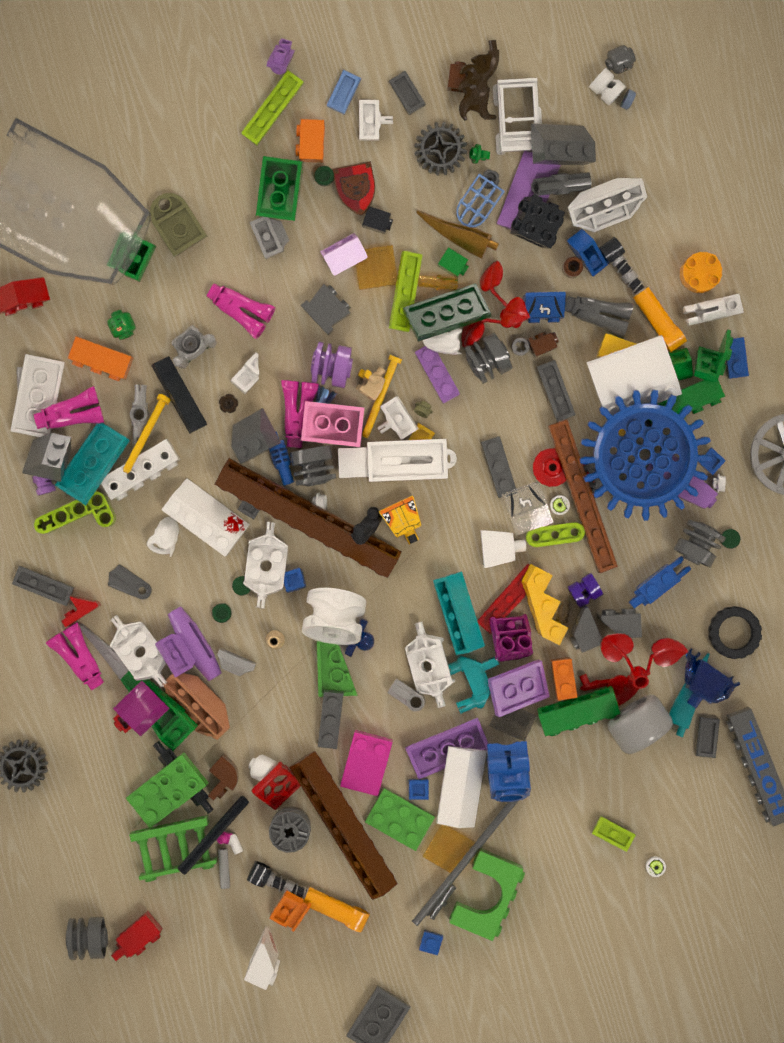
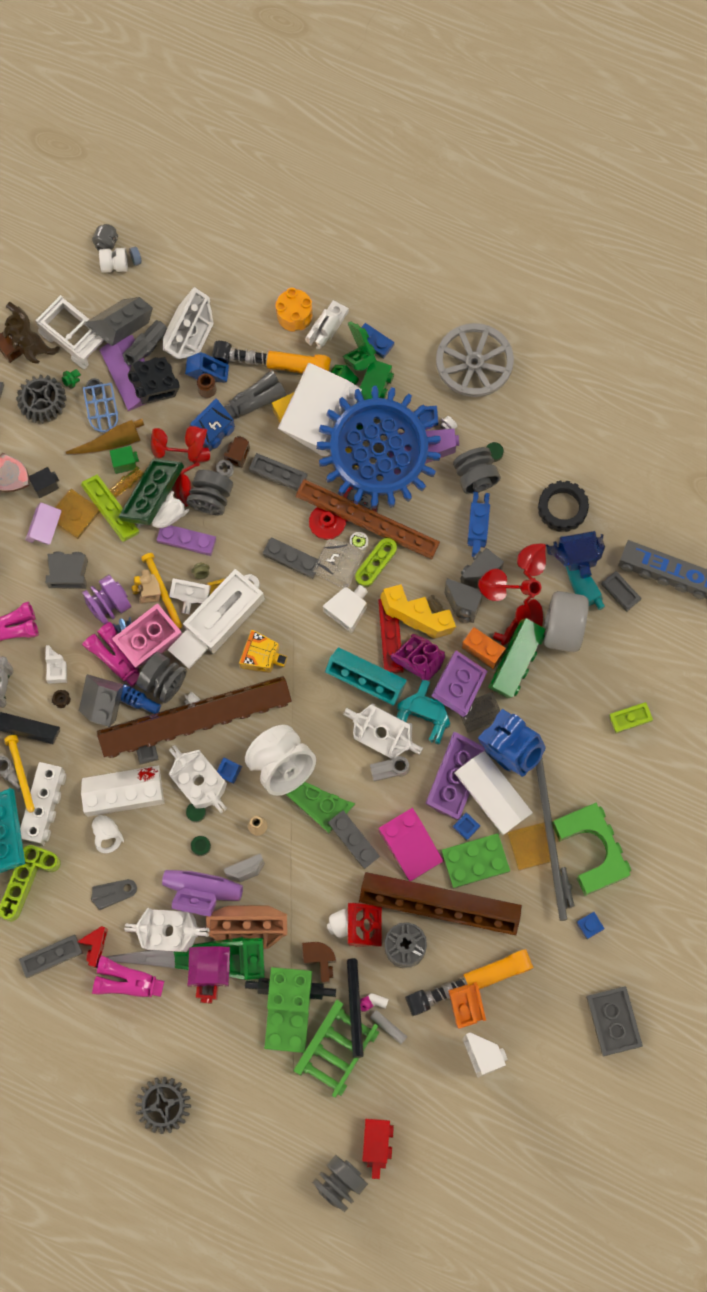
camera: 45 degrees left, 15 degrees down
(366, 643) = (323, 762): clear blue tile -> none
(367, 527) = (241, 679): black piece -> none
(592, 589) = (435, 576): dark purple wheel -> none
(655, 866) = (683, 711): tile -> none

